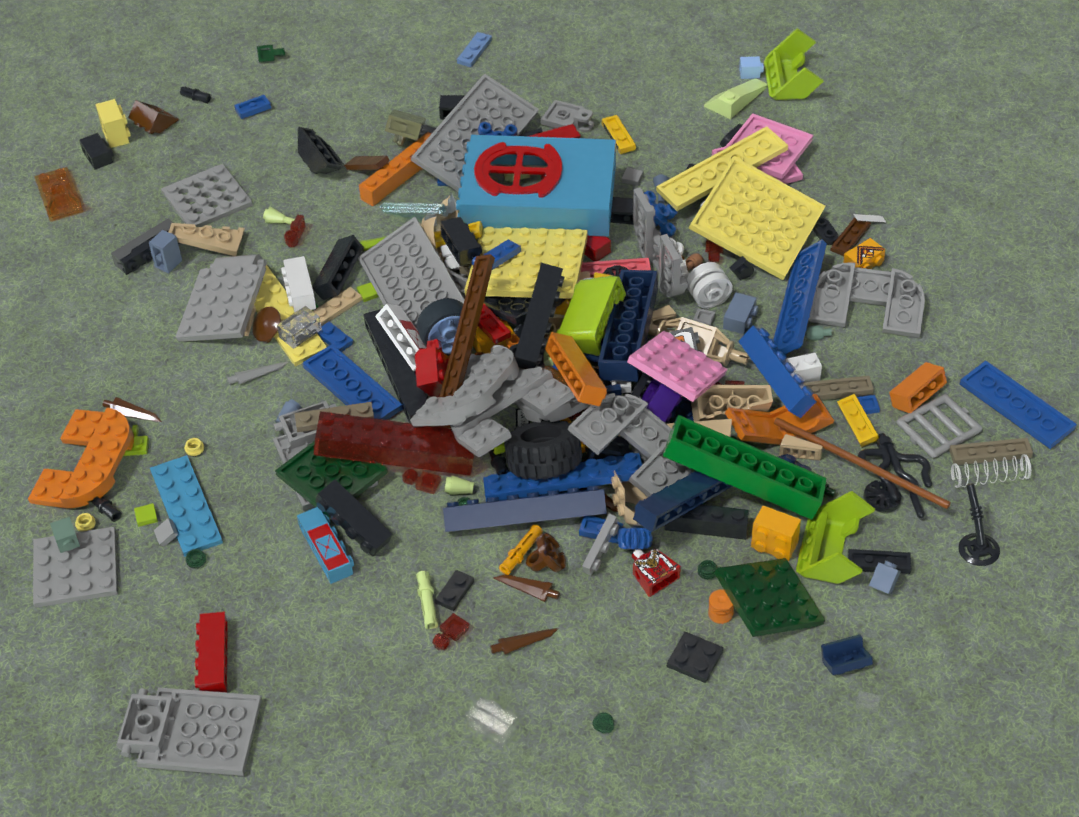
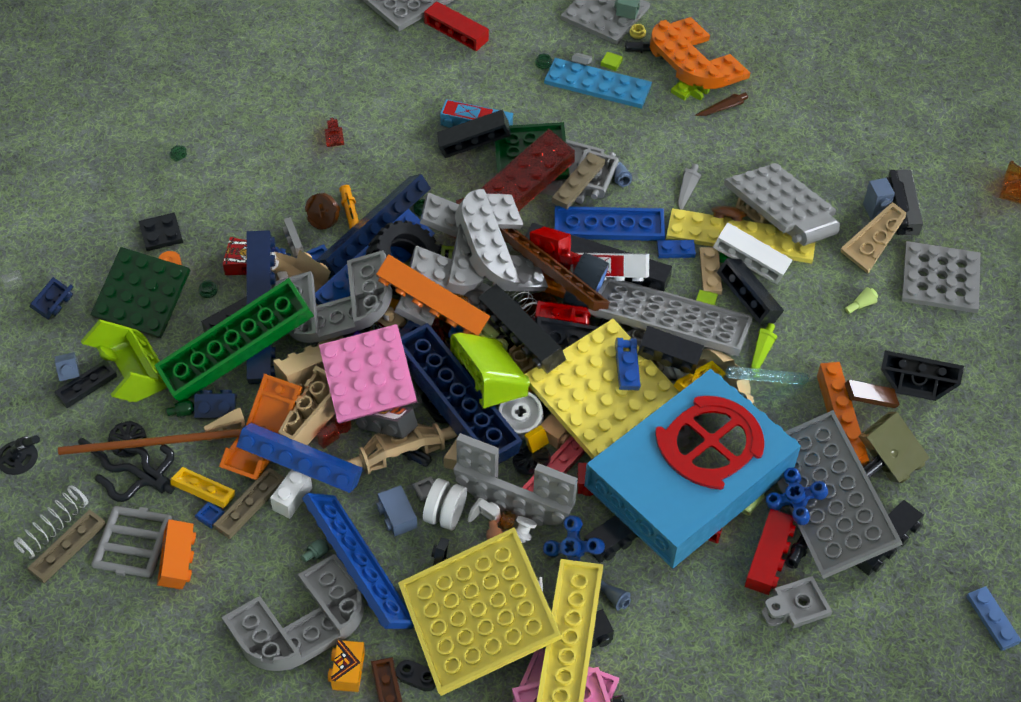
camera: 130 degrees right, 5 degrees up
(191, 443) = (646, 113): light yellow plate -> none
(296, 230) = (831, 300): clear red plate -> none
(299, 327) = (698, 219): clear brick -> none
(426, 593) = (377, 141): yellowish green pin -> none
(454, 590) = (363, 158): black plate -> none
(492, 721) = (247, 107): clear brick -> none
(513, 643) = (287, 159): reddish brown bar -> none
(535, 588) = (302, 199): reddish brown bar -> none
(618, 132) = (727, 625): yellow plate -> none
(632, 176) = (656, 588): light grey tile -> none
(775, 533) = (174, 331): light orange brick -> none
(1018, 404) = (77, 613): blue plate -> none

